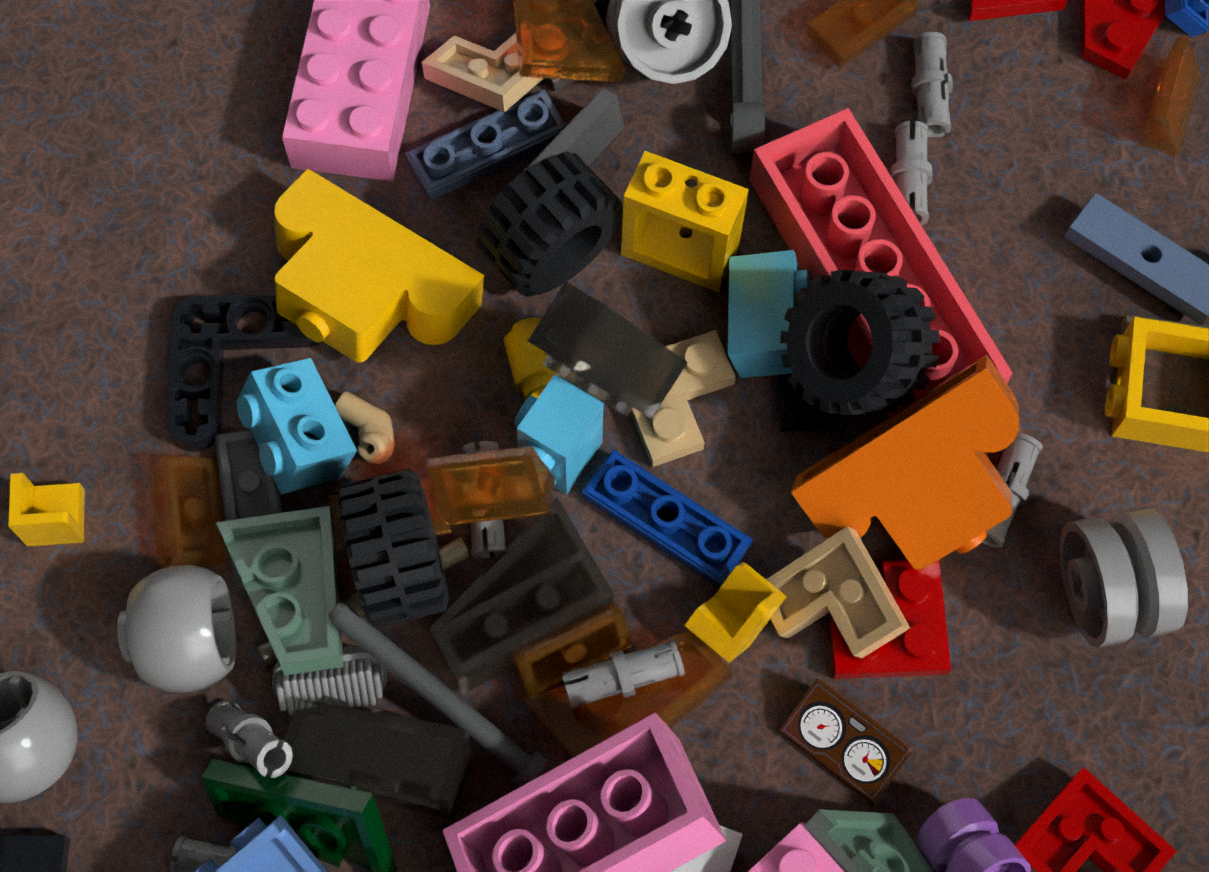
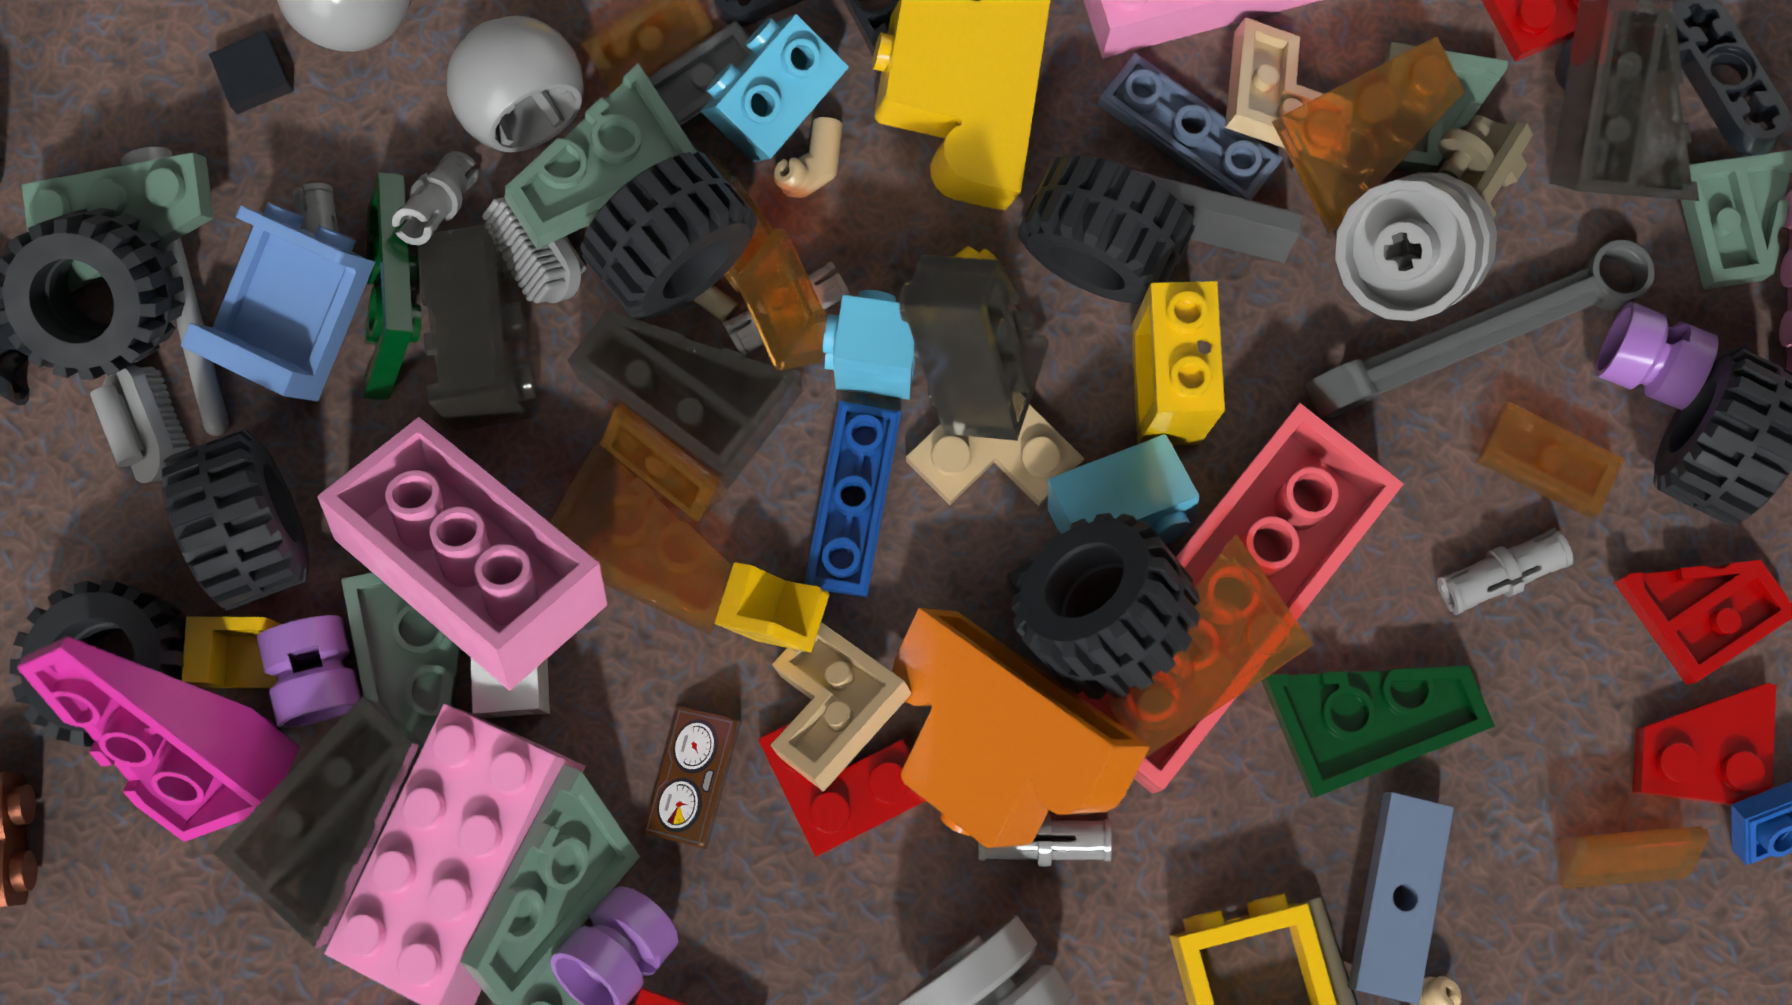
camera: 65 degrees right, 10 degrees up
(523, 764) = (552, 356): dark grey bar -> none
(623, 673) = (655, 522): light grey pin -> none
(912, 169) = (1377, 592): light grey pin -> none
(929, 260) = (1237, 643): none -> clear orange wing
(1008, 220) = (1372, 720): none -> dark green wing

